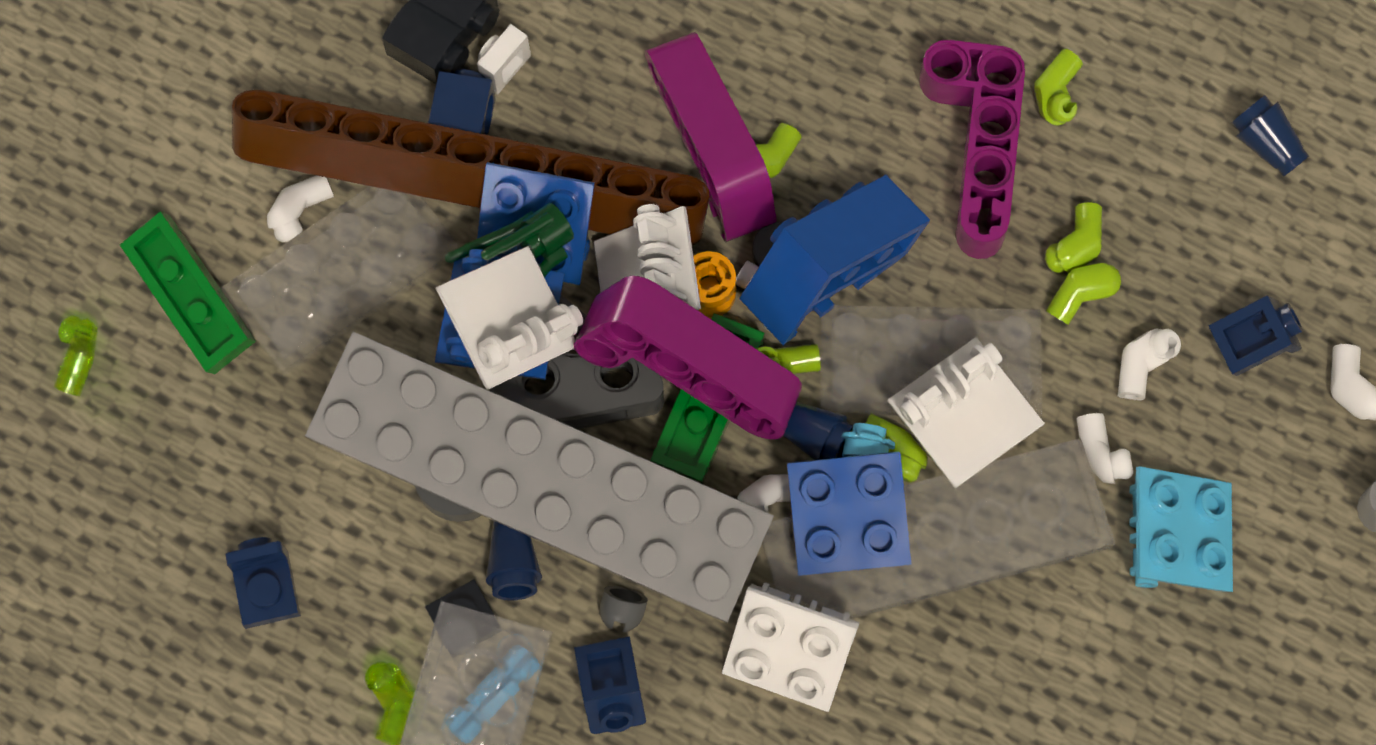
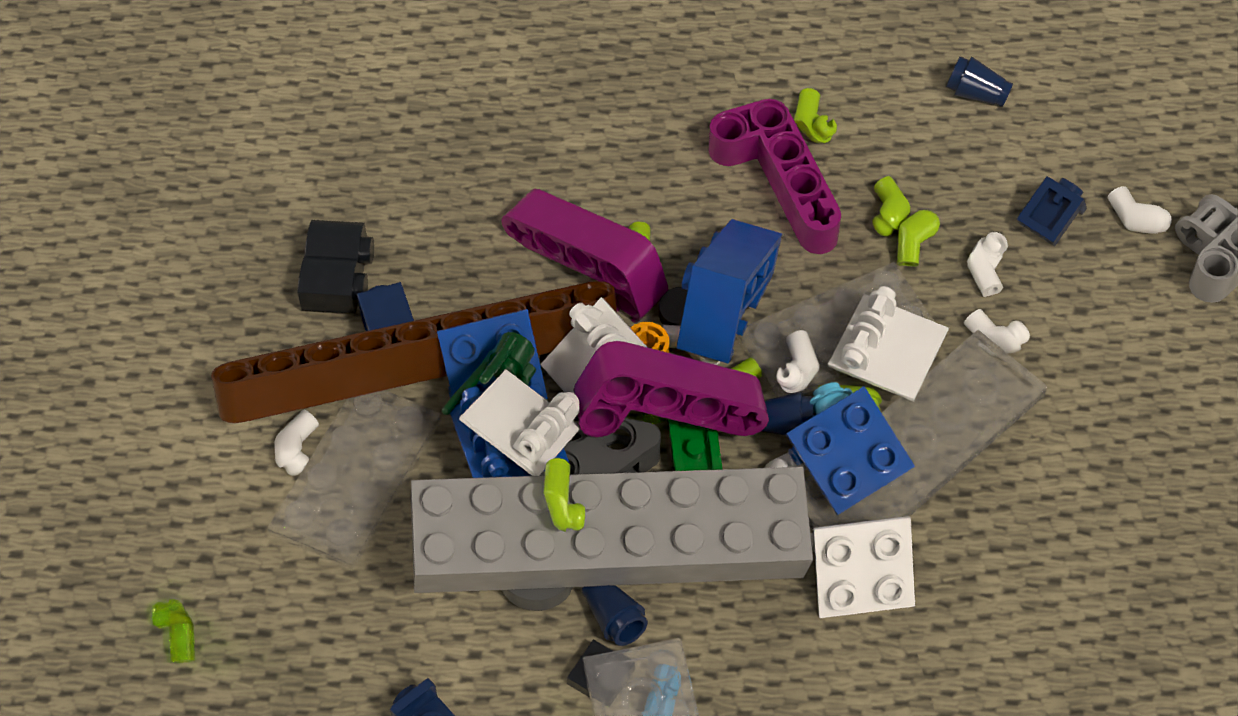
camera: 30 degrees left, 15 degrees down
(187, 293) = (243, 542): green plate -> none
(483, 429) = (557, 495): none -> lime arm
(503, 56) = (397, 265): white plate -> none
(610, 686) = (745, 662): dark blue bracket -> none
(622, 606) = (719, 602): dark grey hinge -> none
(857, 390) = (802, 367): none -> white arm
(1181, 530) = (1083, 360): medium azure hinge -> none

